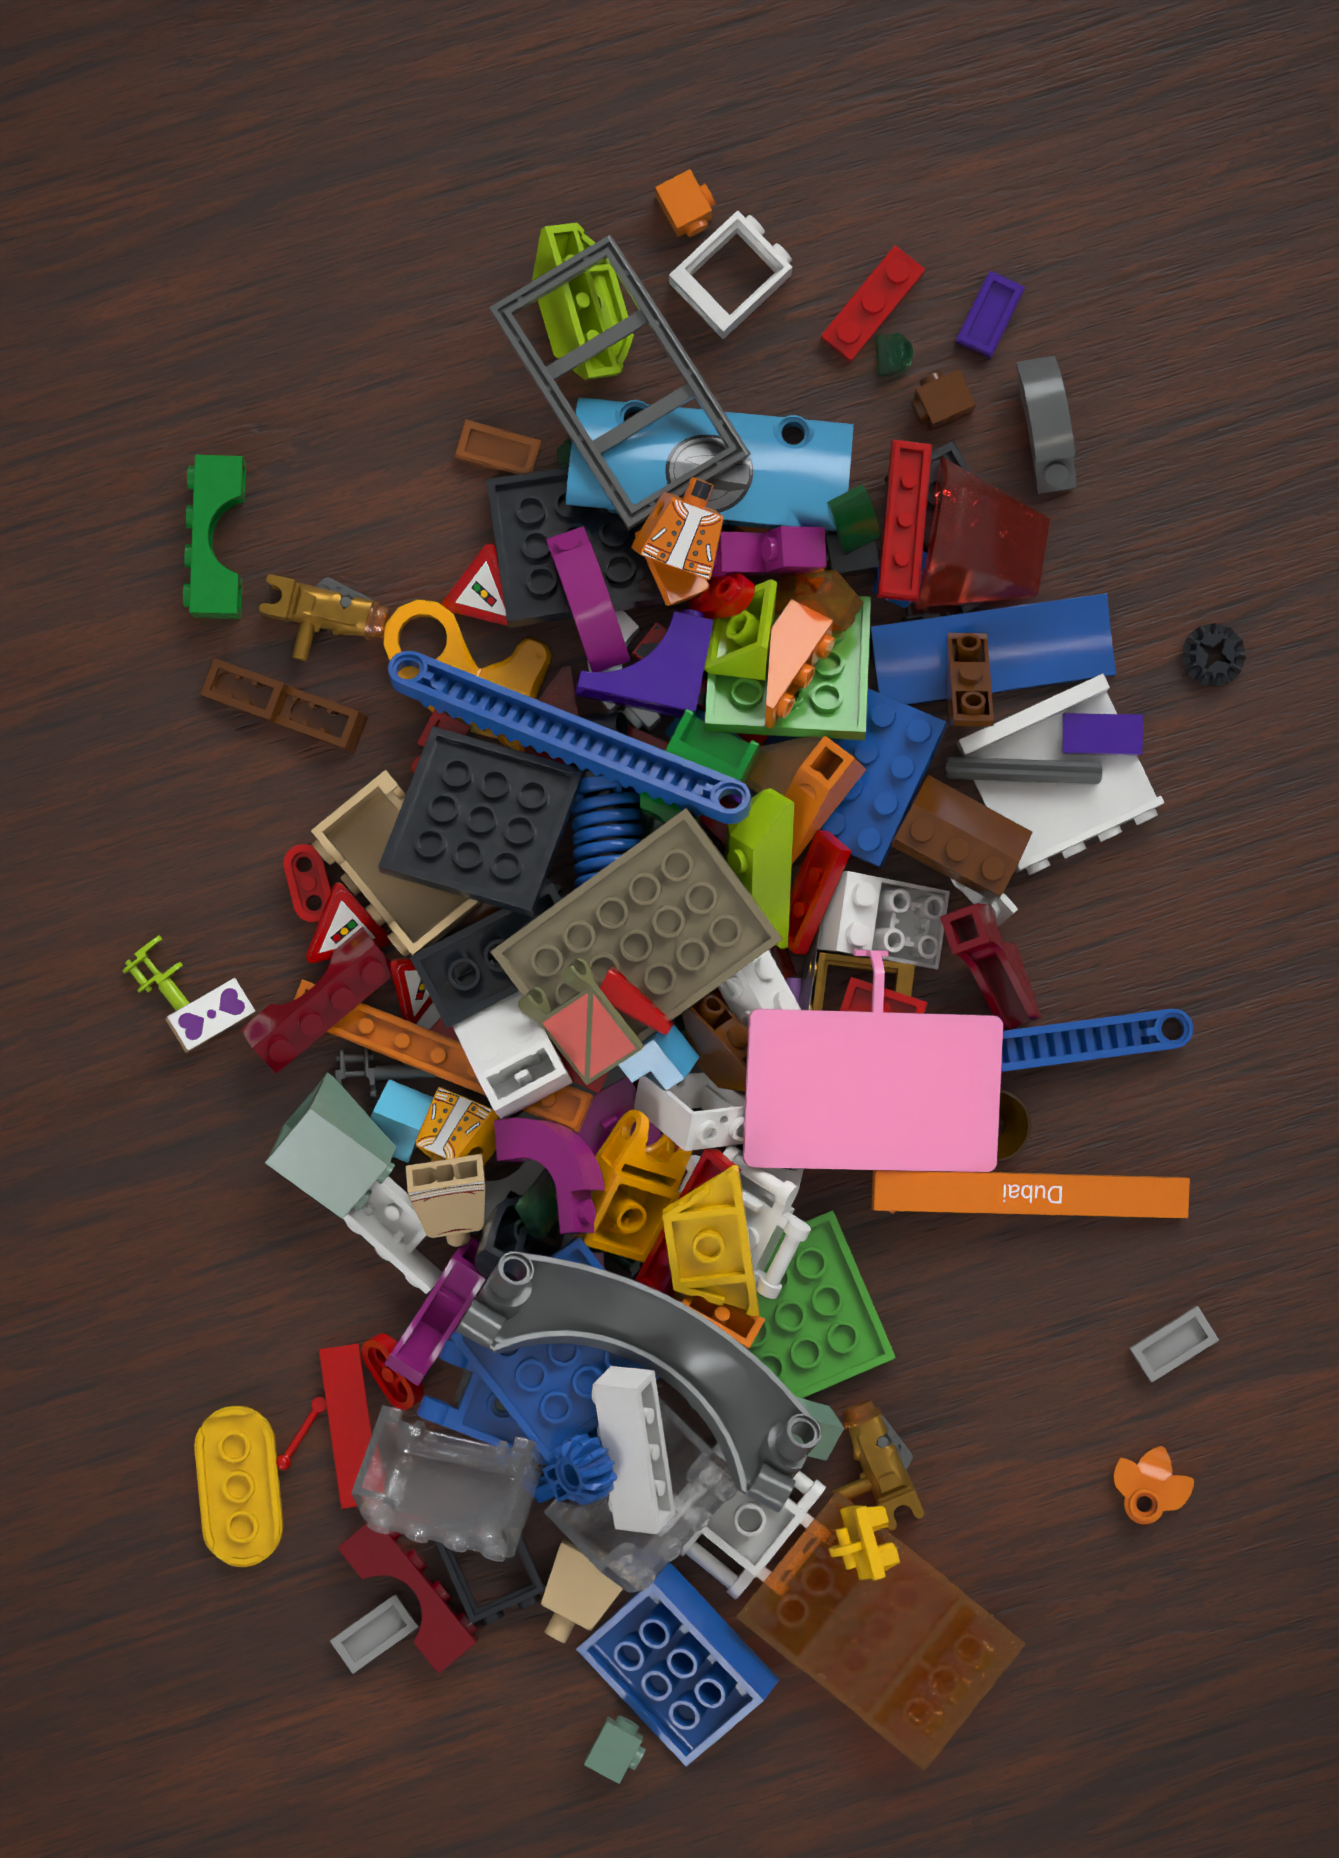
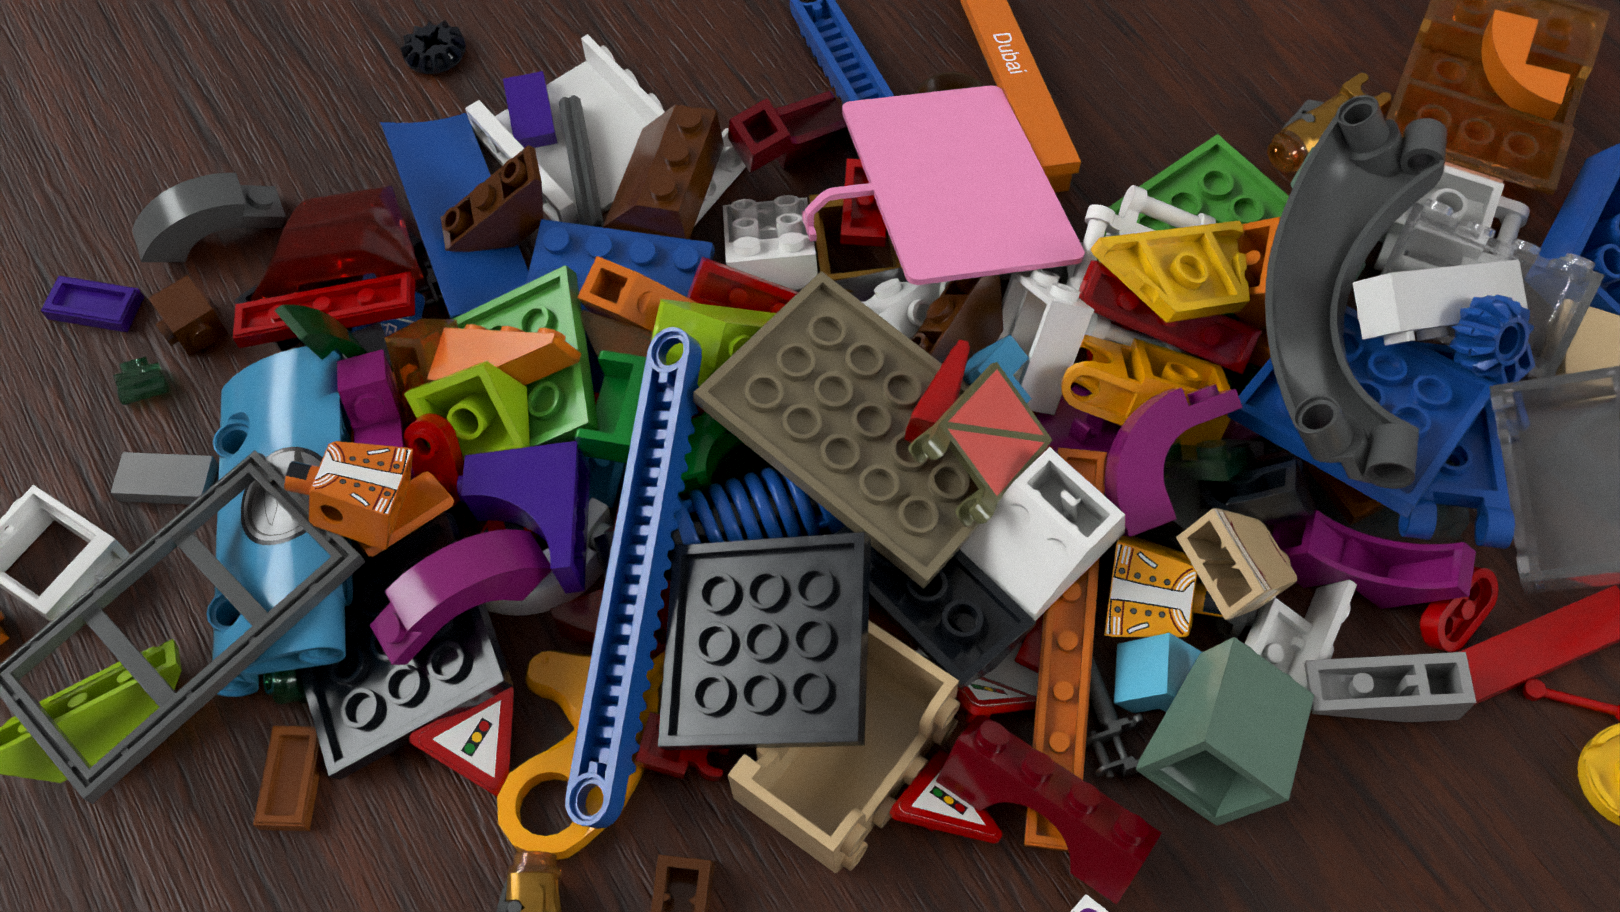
camera: 105 degrees left, 25 degrees down
(306, 884) = (895, 864): red plate -> none
(339, 1281) = (1392, 687): none -> light grey slope
(789, 369) = (163, 477): none -> light grey tile
(859, 1544) = (1428, 88): yellow hips -> none
(872, 303) = (83, 413): red plate -> none
(892, 1641) = (1504, 62): none -> orange brick

